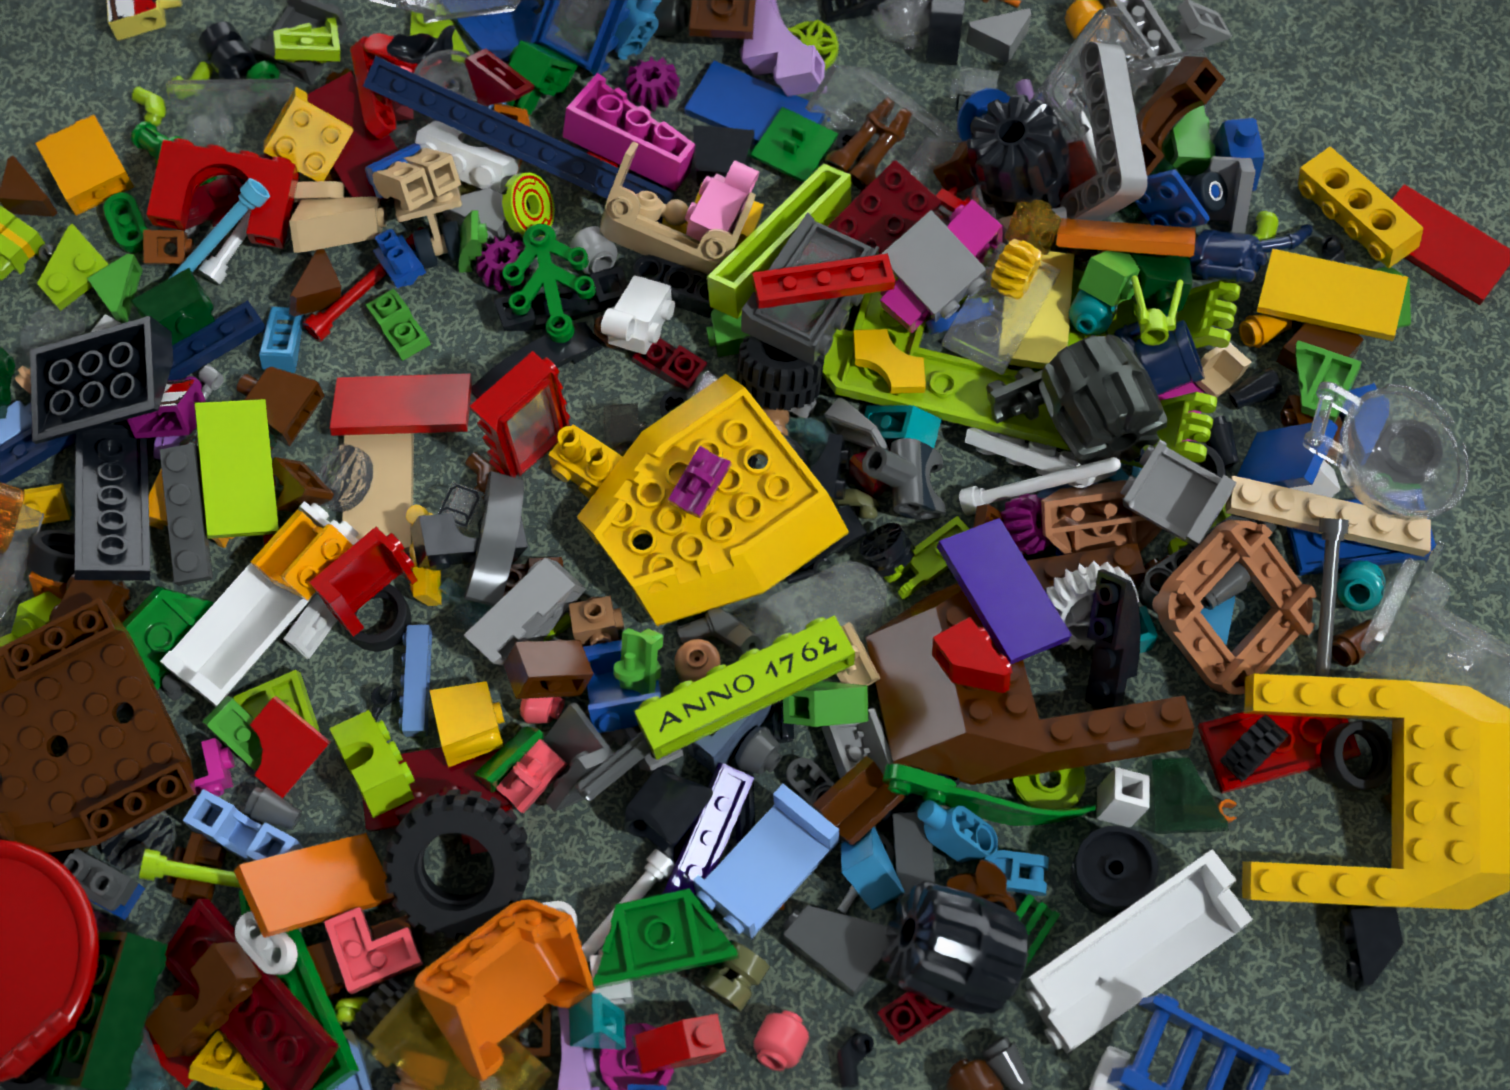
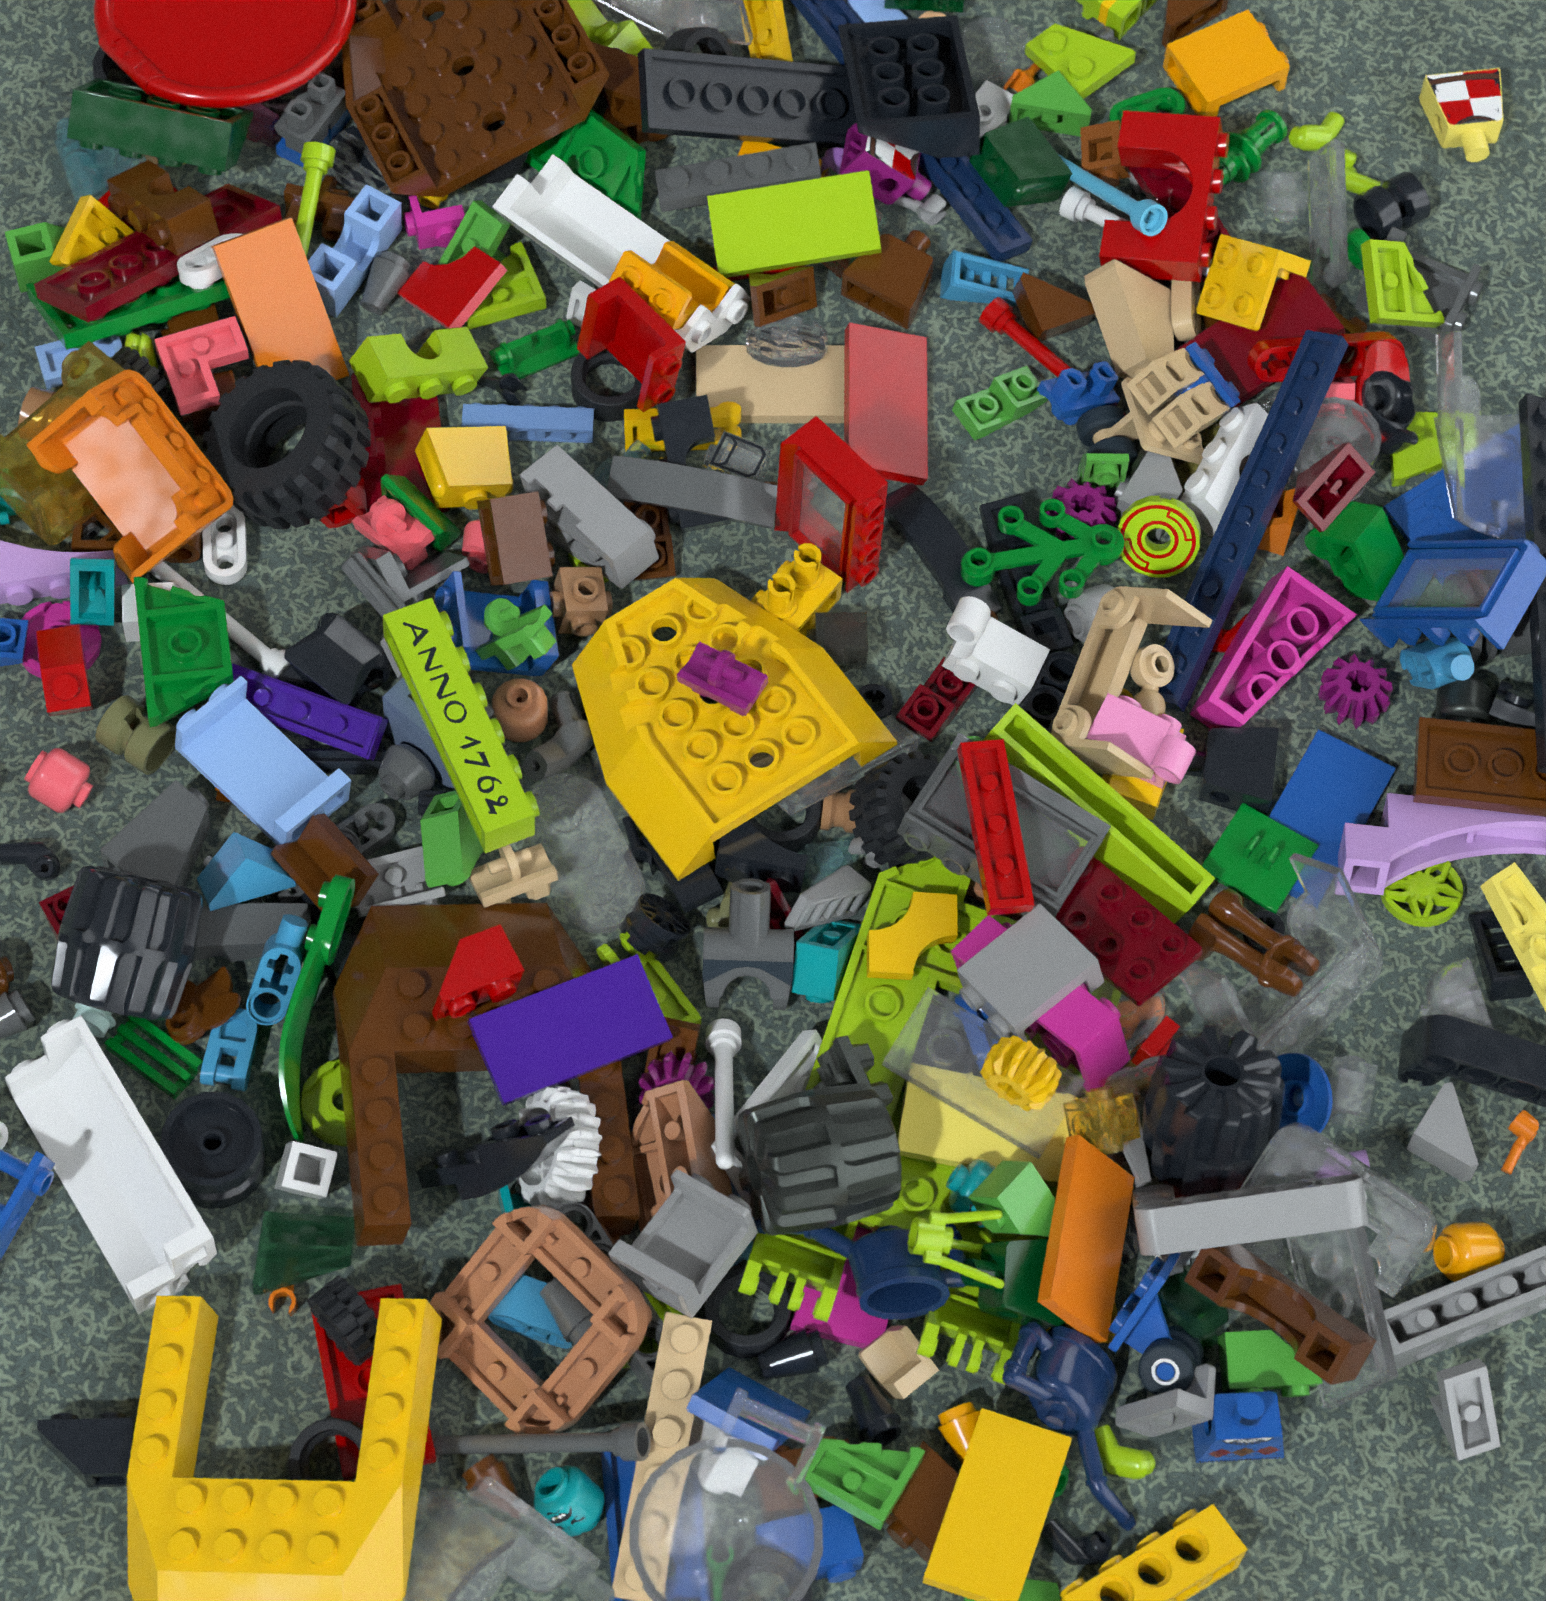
camera: 85 degrees right, 5 degrees down
(88, 312) = (1022, 79): none -> orange hand
(343, 679) = (536, 350): none -> green hinge

